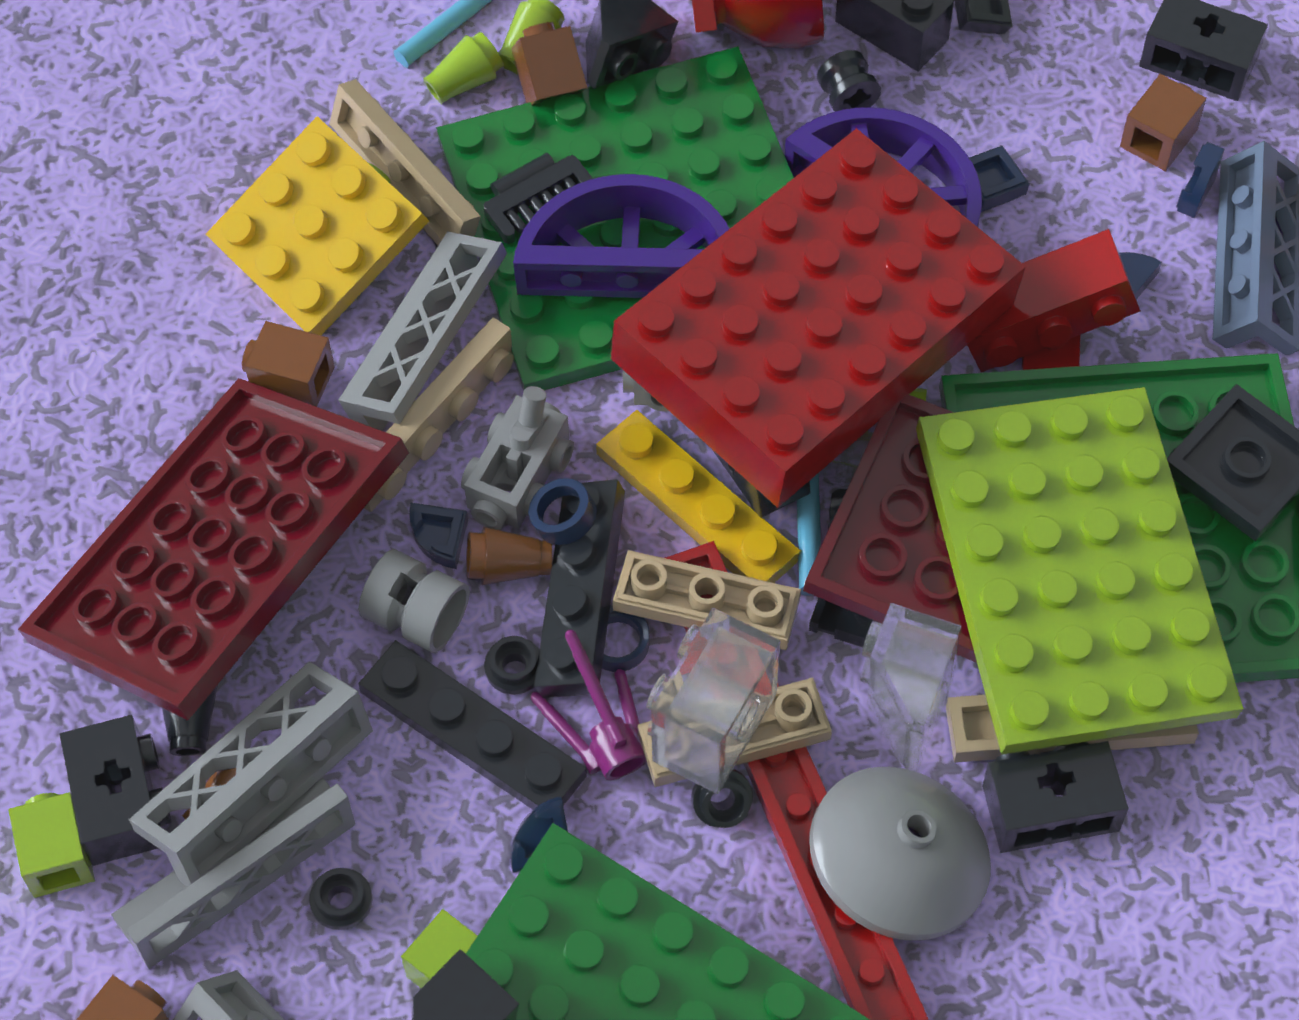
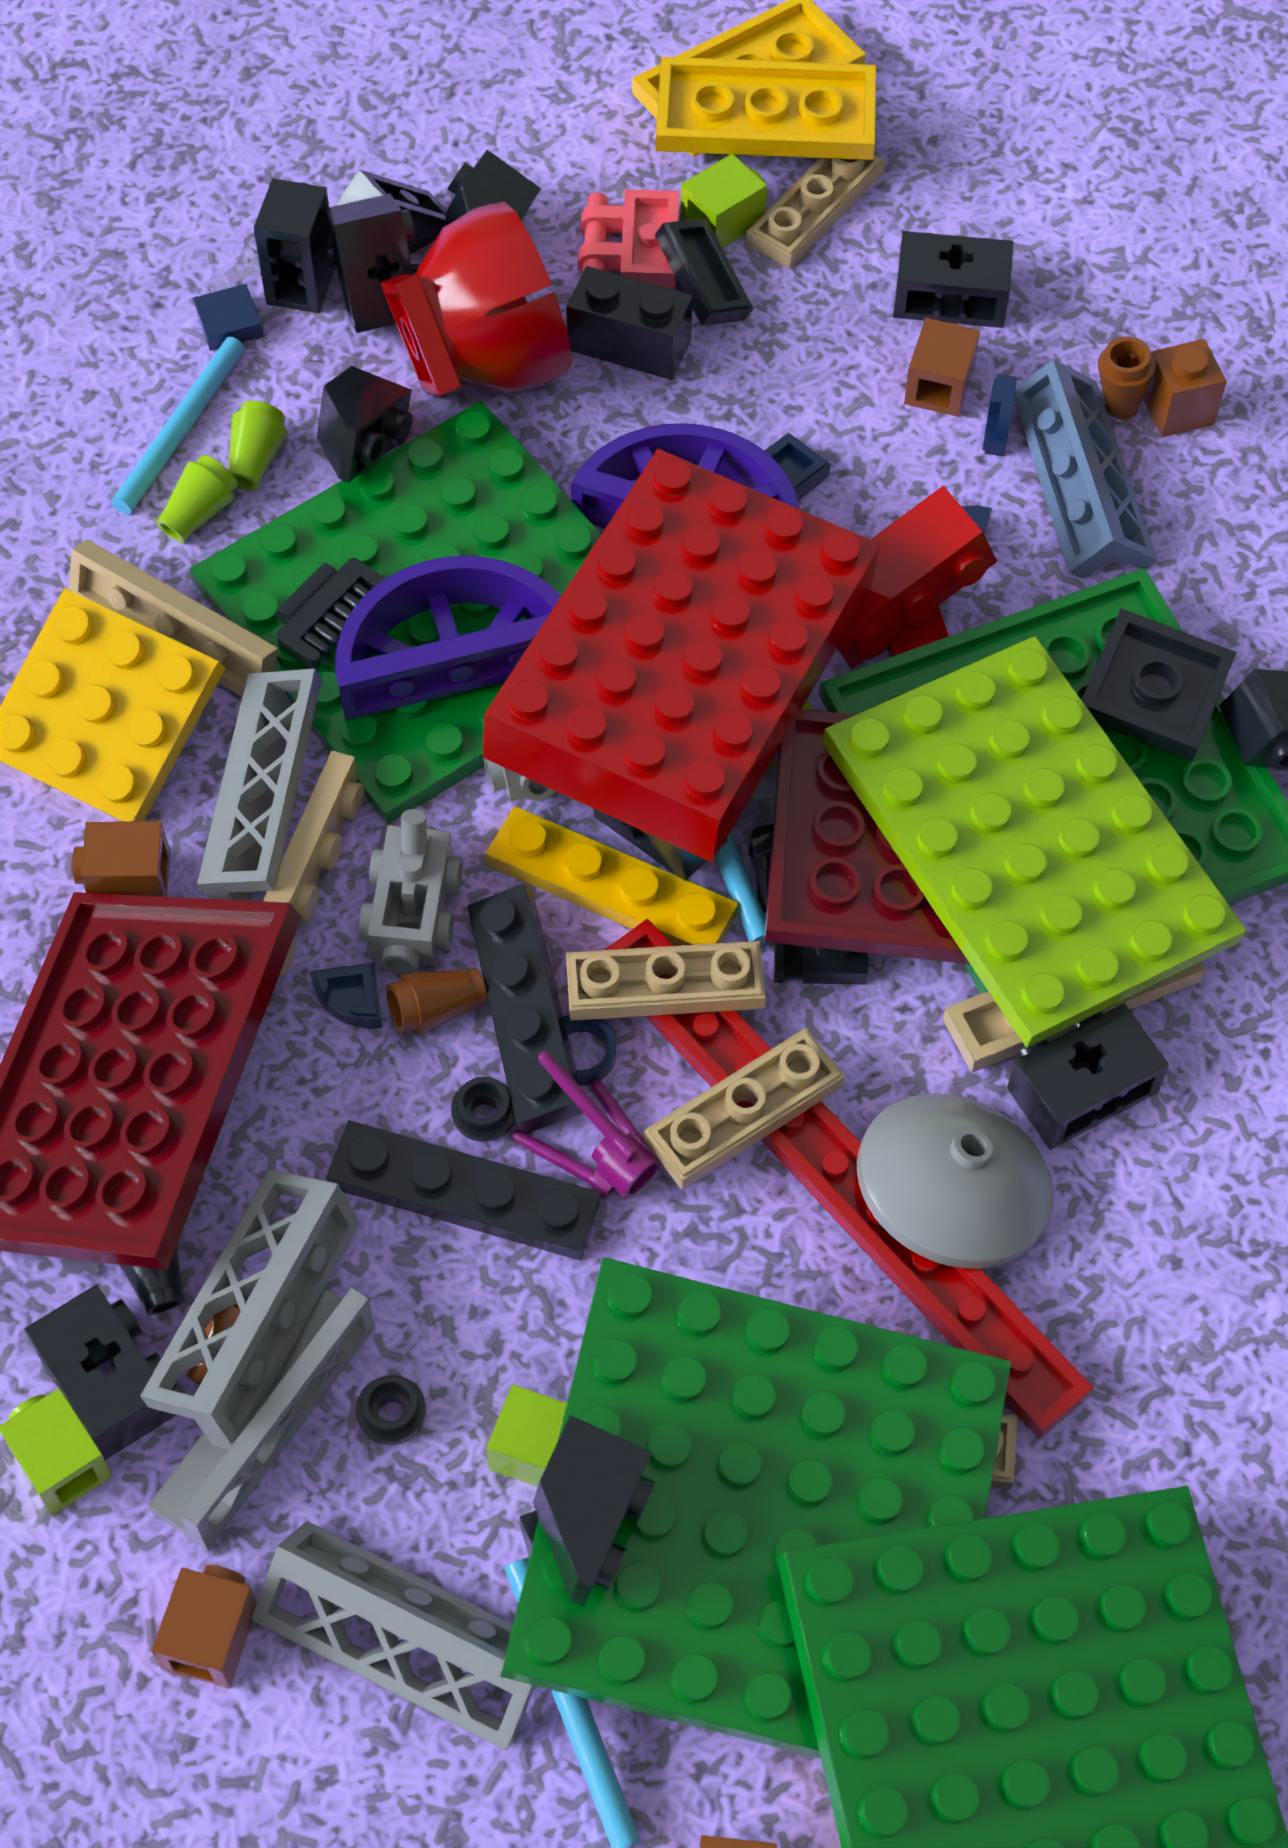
camera: 20 degrees left, 0 degrees up
(408, 598) = (379, 1073): light grey wheel -> none
(533, 830) = (575, 1277): dark blue tile -> none
(548, 63) = (289, 469): dark orange brick -> none
(573, 528) = (498, 949): dark blue piece -> none
(713, 699) = (724, 1077): clear brick -> none
(729, 811) = (766, 1188): black plate -> none
(848, 81) = (609, 408): black wheel -> none
(909, 678) = (903, 1001): clear slope -> none

